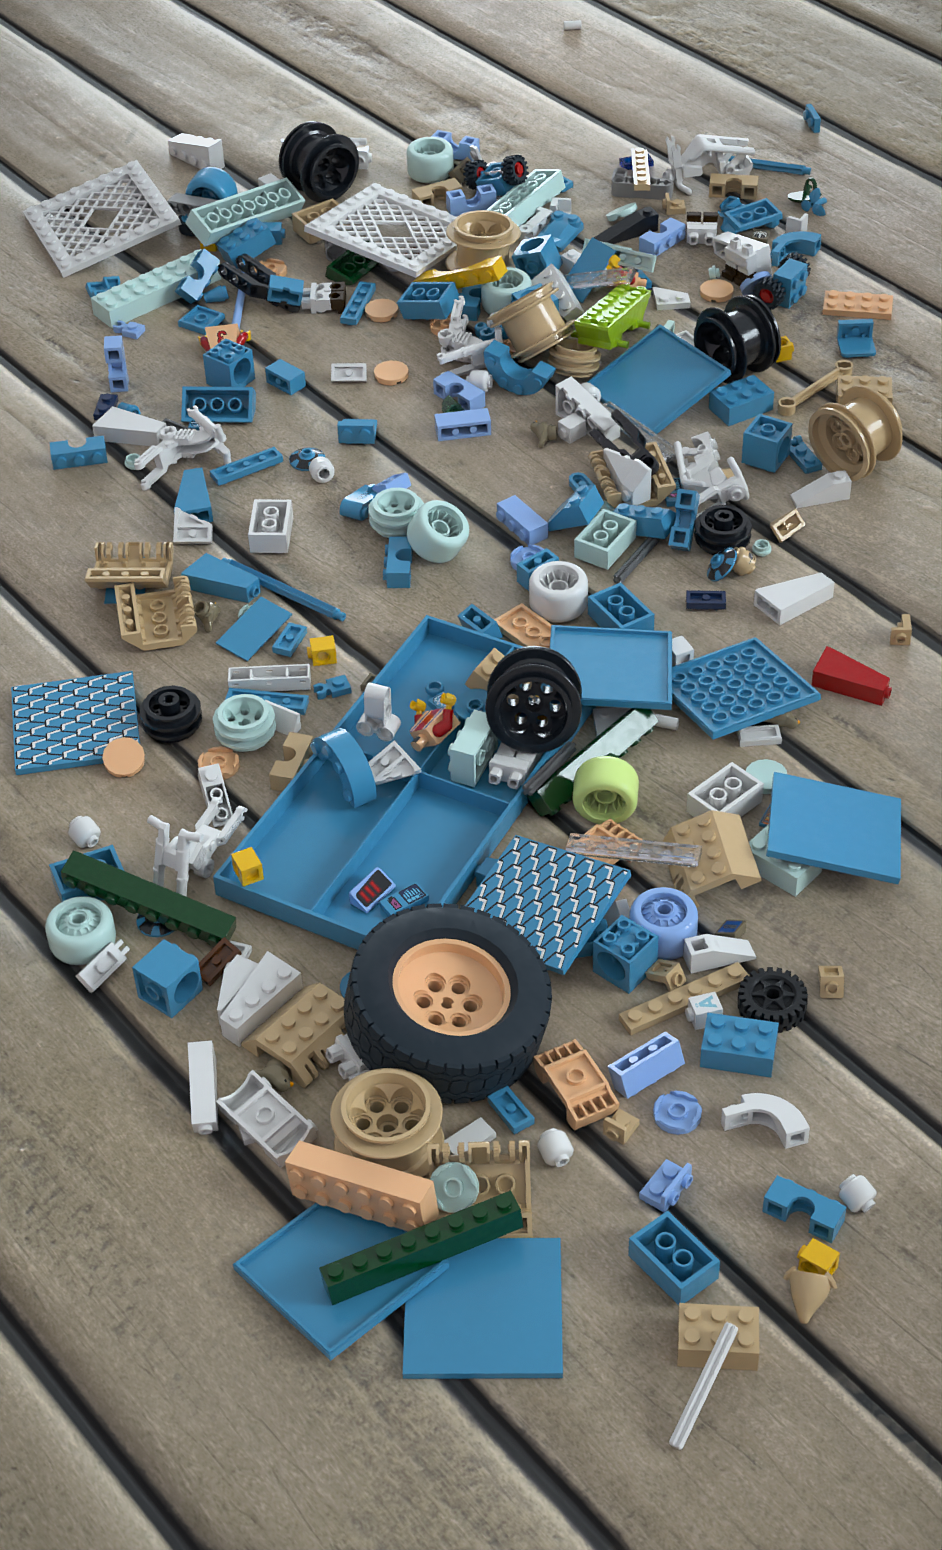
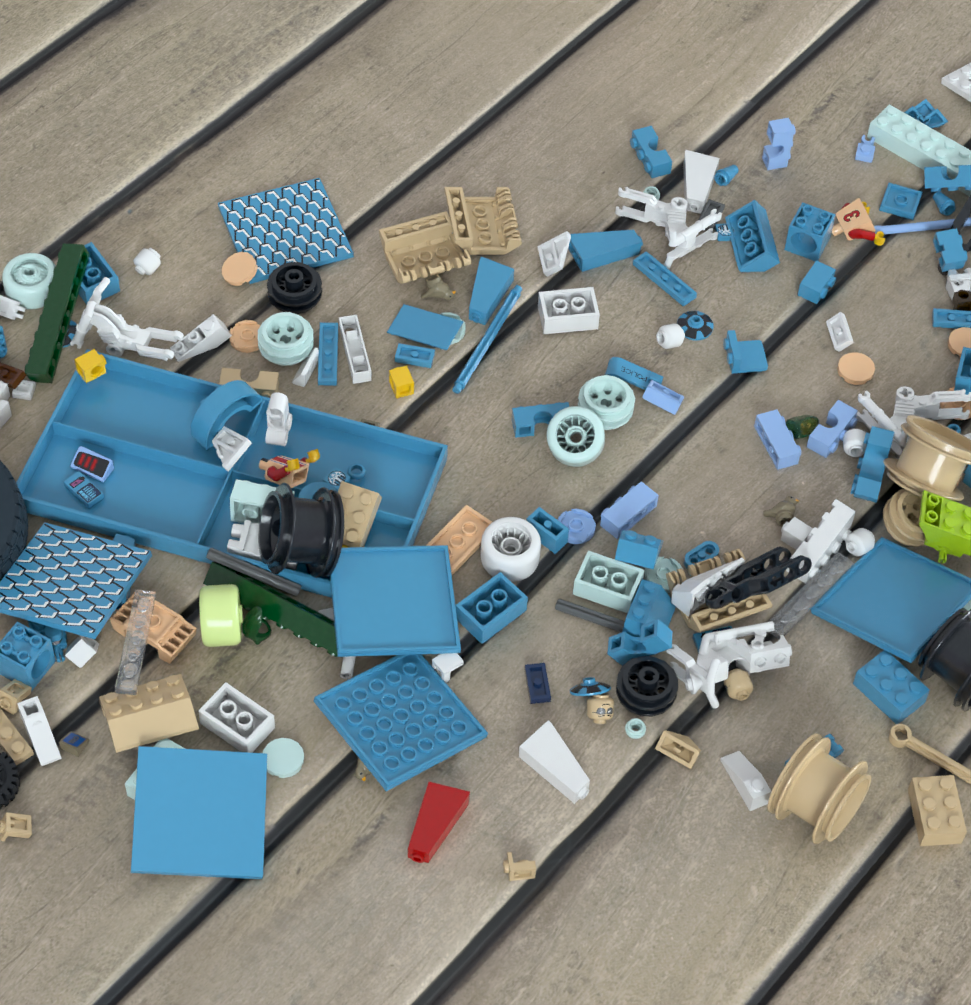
camera: 75 degrees right, 10 degrees up
(104, 403) = (736, 157): dark blue plate -> none
(334, 686) = (358, 401): dark azure plate -> none
(477, 620) = (451, 494): dark azure brick -> none
(668, 915) = (64, 682): light blue wheel -> none
(759, 735) = (342, 752): white tile -> none
(766, 443) = (802, 710): dark azure brick -> none

